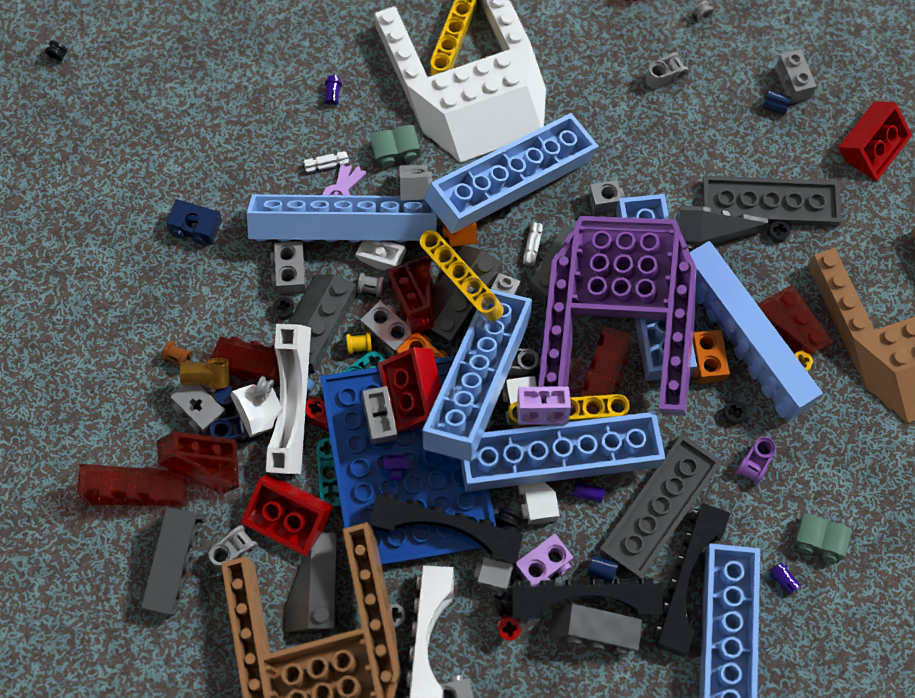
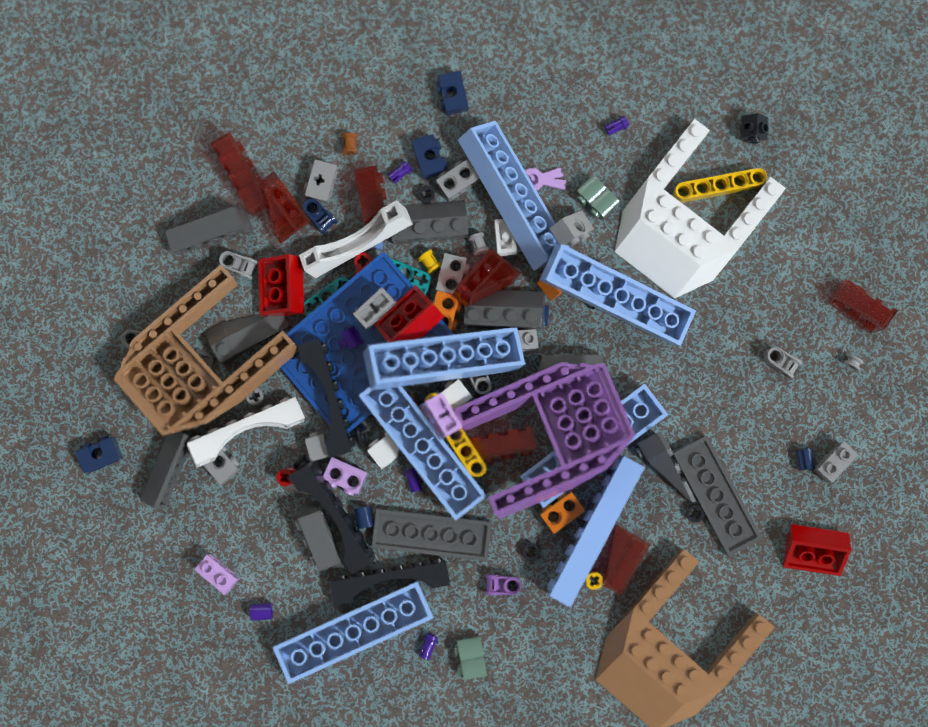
camera: 65 degrees right, 15 degrees up
(211, 373) = (345, 177): pearl gold piece -> none
(224, 398) = (337, 196): dark blue piece -> none
(241, 317) = (400, 171): none -> dark purple pin
(255, 290) = (427, 145): none -> dark blue brick
(256, 413) = (339, 222): white slope -> none
(263, 388) = (351, 218): light grey bush -> none
(326, 162) = (556, 155): white axle -> none
(467, 282) = (510, 313): yellow beam -> none
(532, 244) = (578, 340): white axle -> none
(598, 202) = (646, 364): light grey brick -> none

